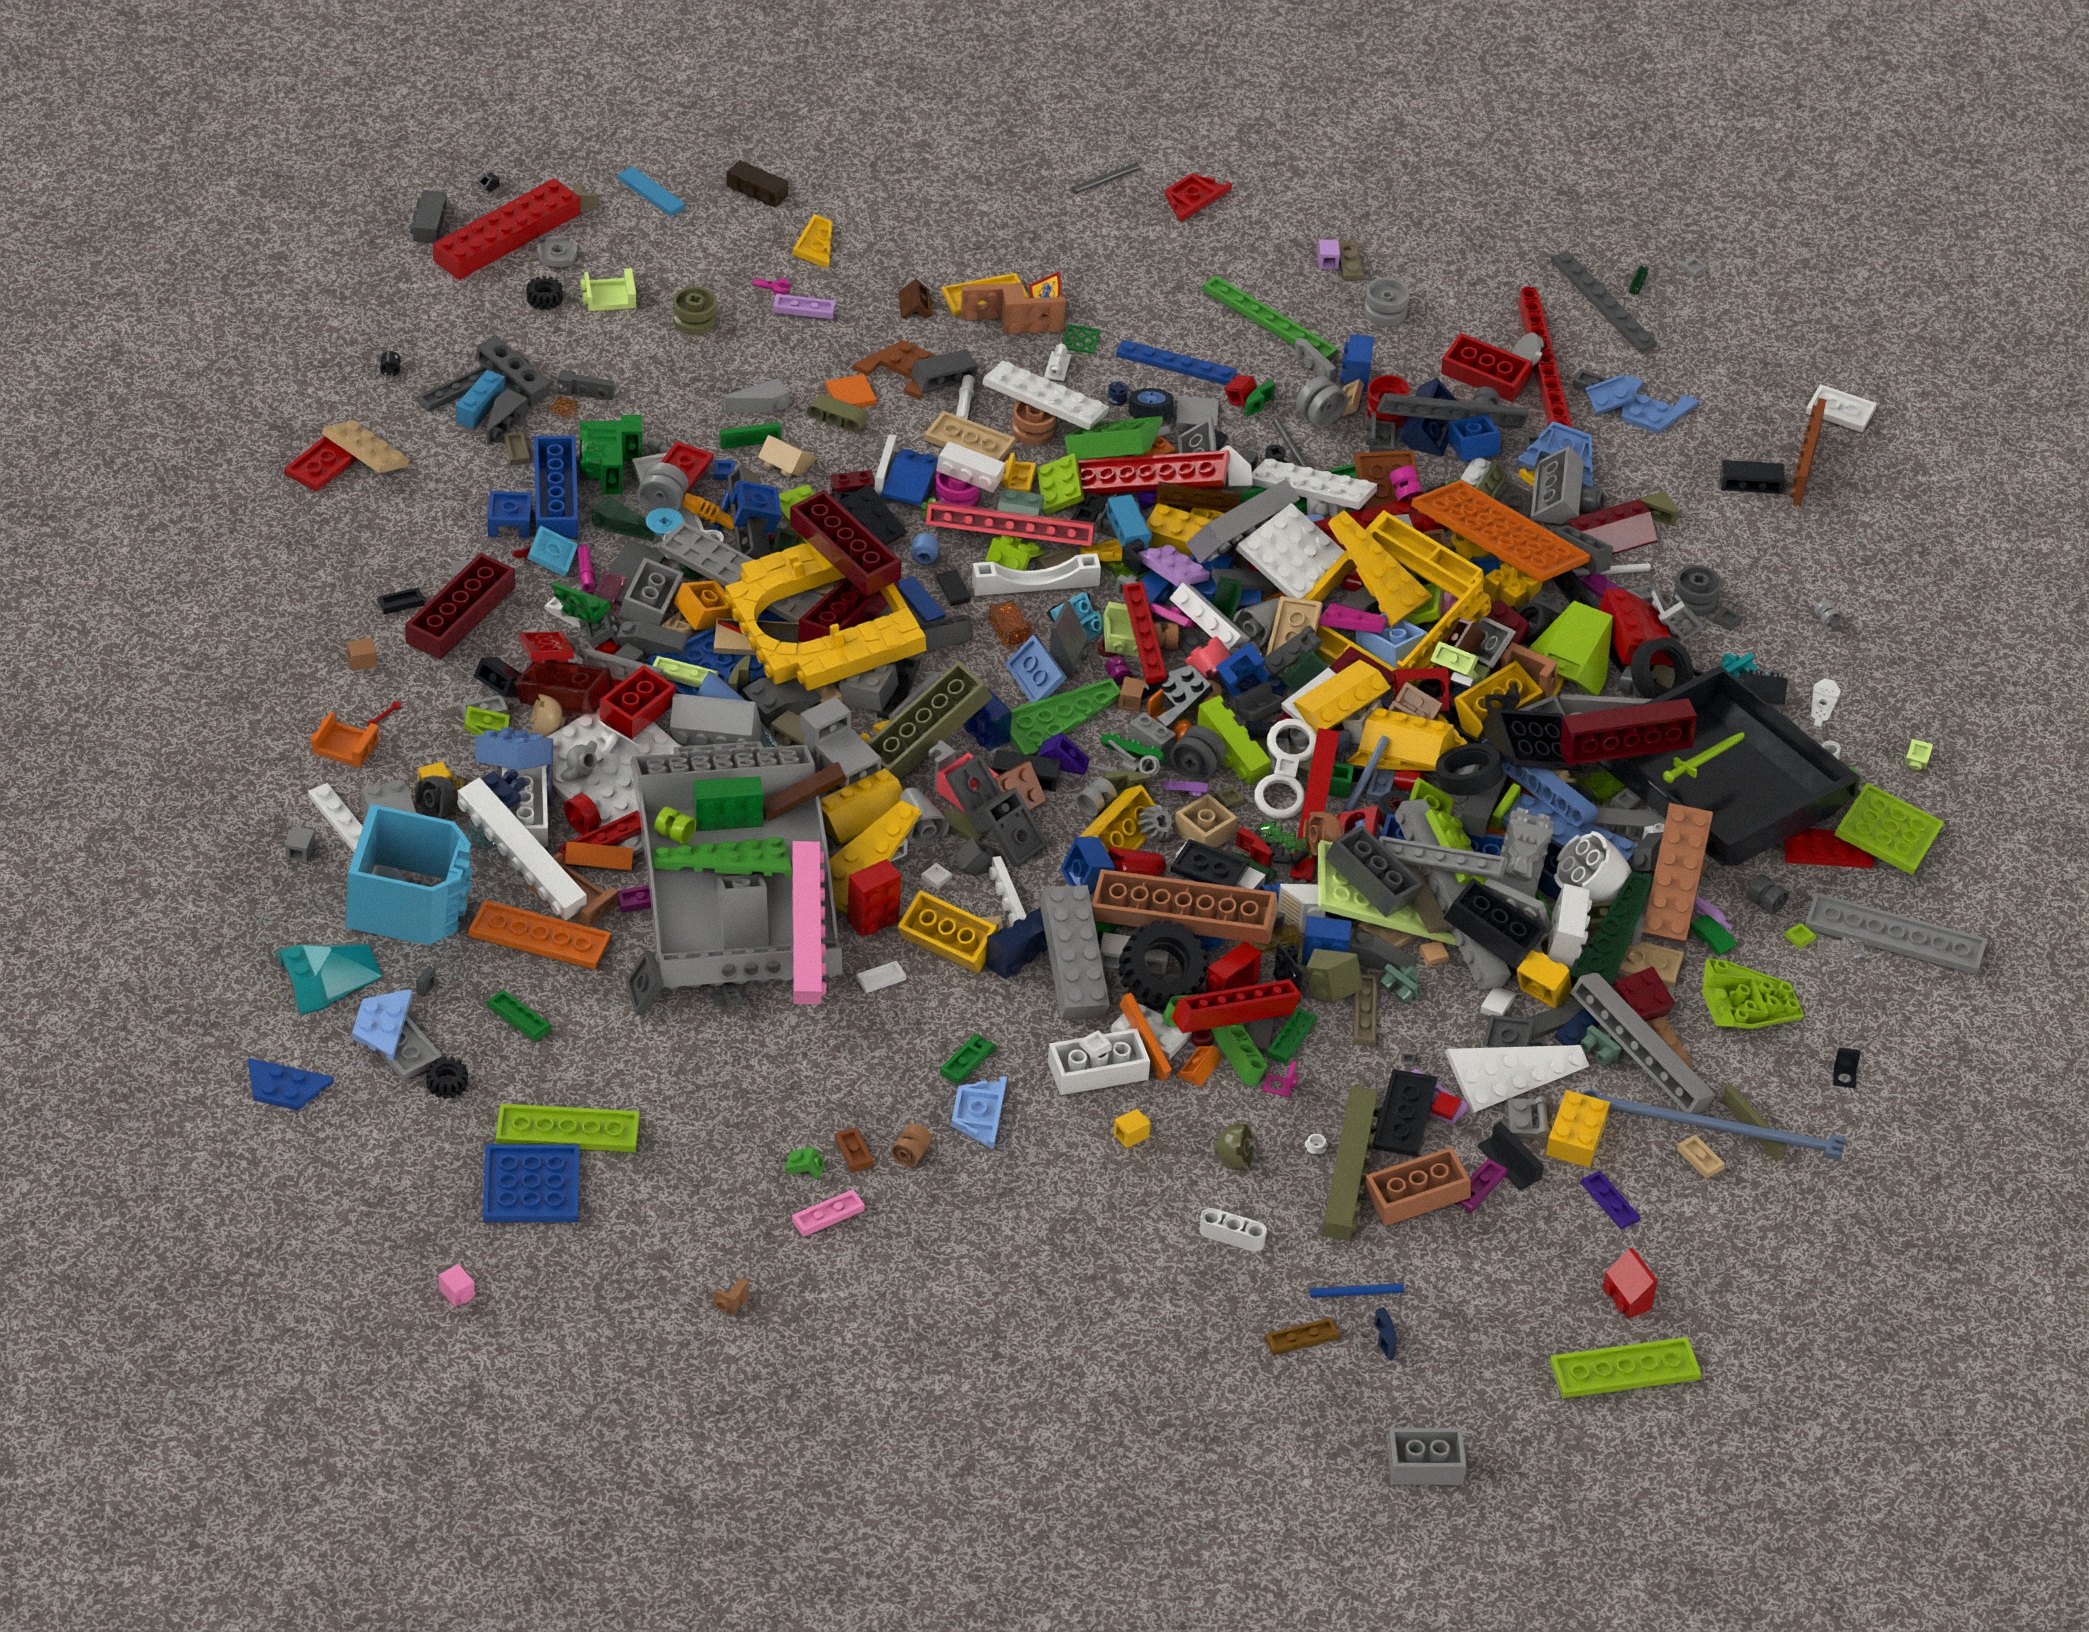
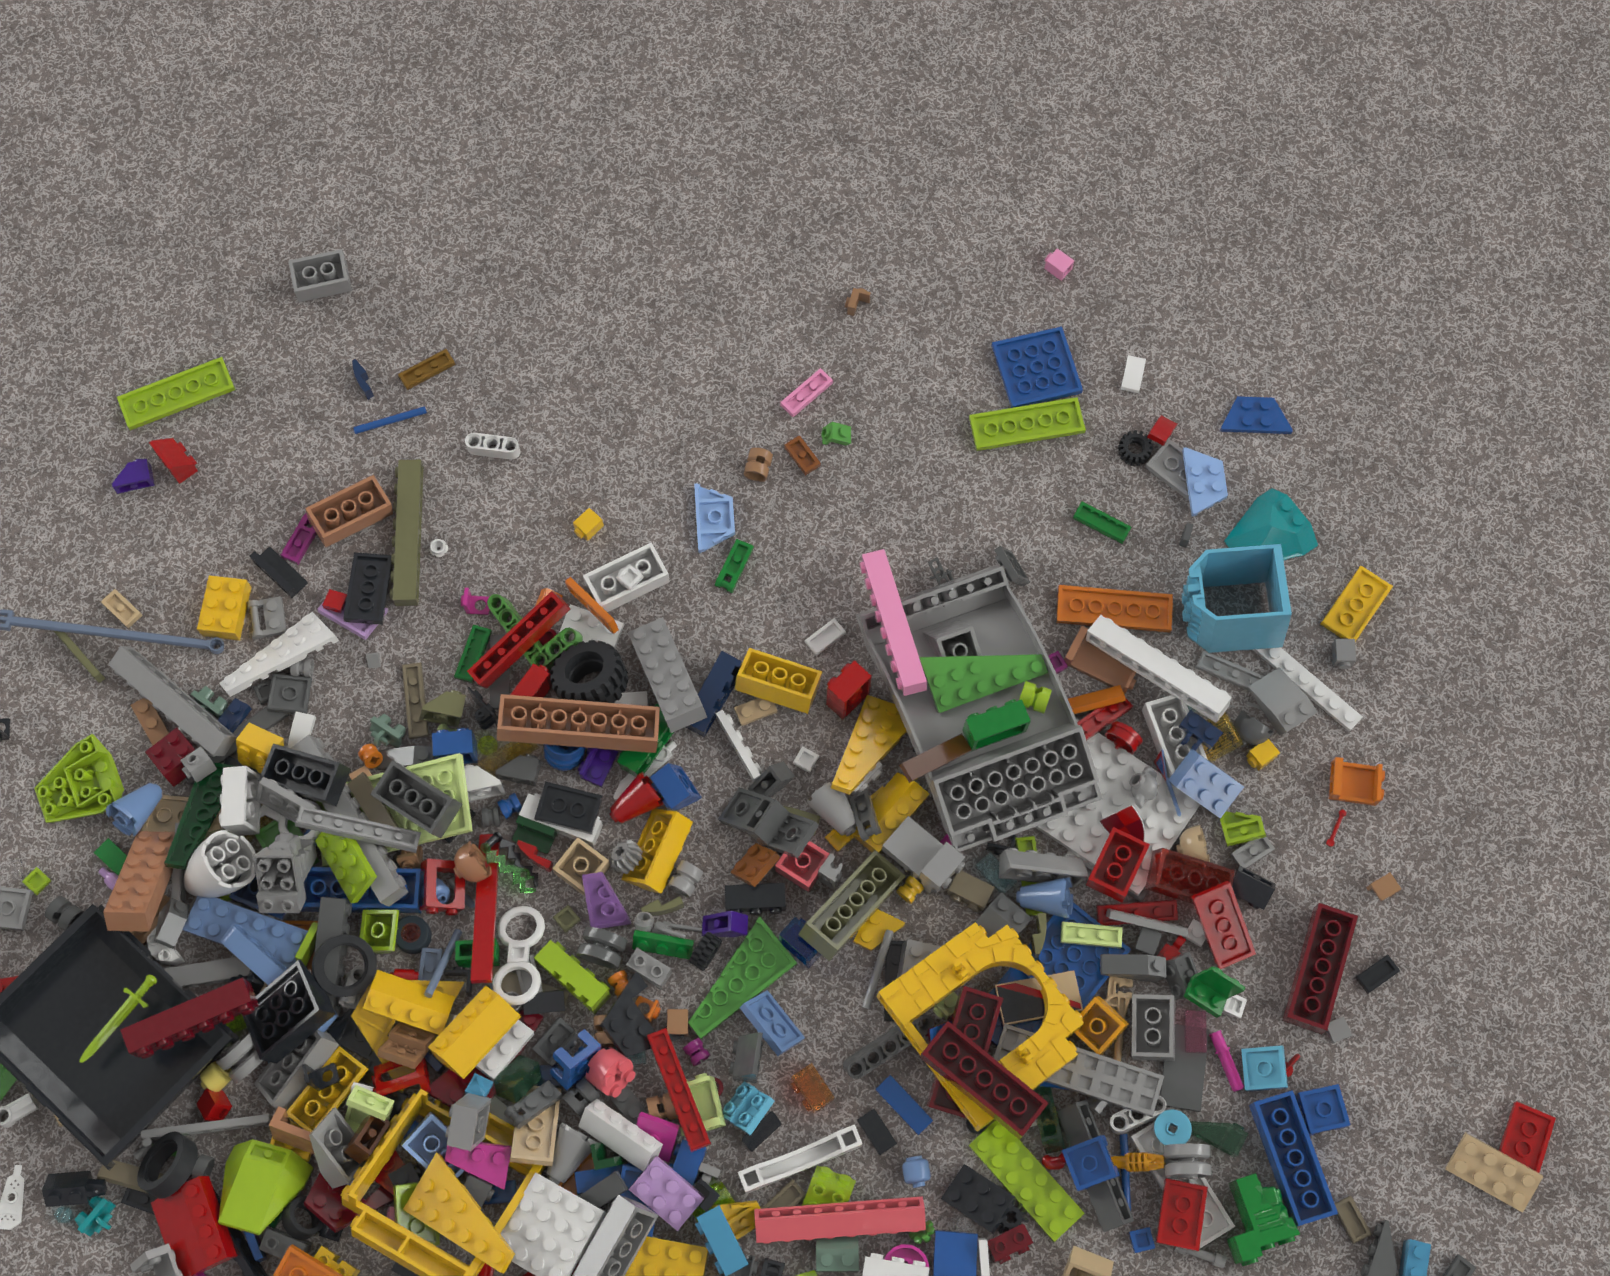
camera: 170 degrees right, 25 degrees up
(260, 888) = (1356, 604): none -> yellow tile
(403, 1087) = (1162, 430): none -> red slope
(413, 1153) = (1133, 374): none -> white slope
(888, 794) = (865, 815): none -> dark grey plate
(1089, 733) = (705, 951): none -> black tyre
(1234, 1145) = (502, 520): olive cylinder -> none
(1341, 662) = (479, 1086): none -> dark azure tile
(1358, 629) = (468, 1121): none -> light grey brick
(1422, 962) = (370, 756): none -> orange wheel
(1610, 1200) = (195, 551): dark purple tile -> none
(1614, 969) = (197, 765): none -> light grey brick
(1680, 1283) = (134, 476): none -> dark purple slope
(1686, 952) = (134, 808): none -> medium blue cone

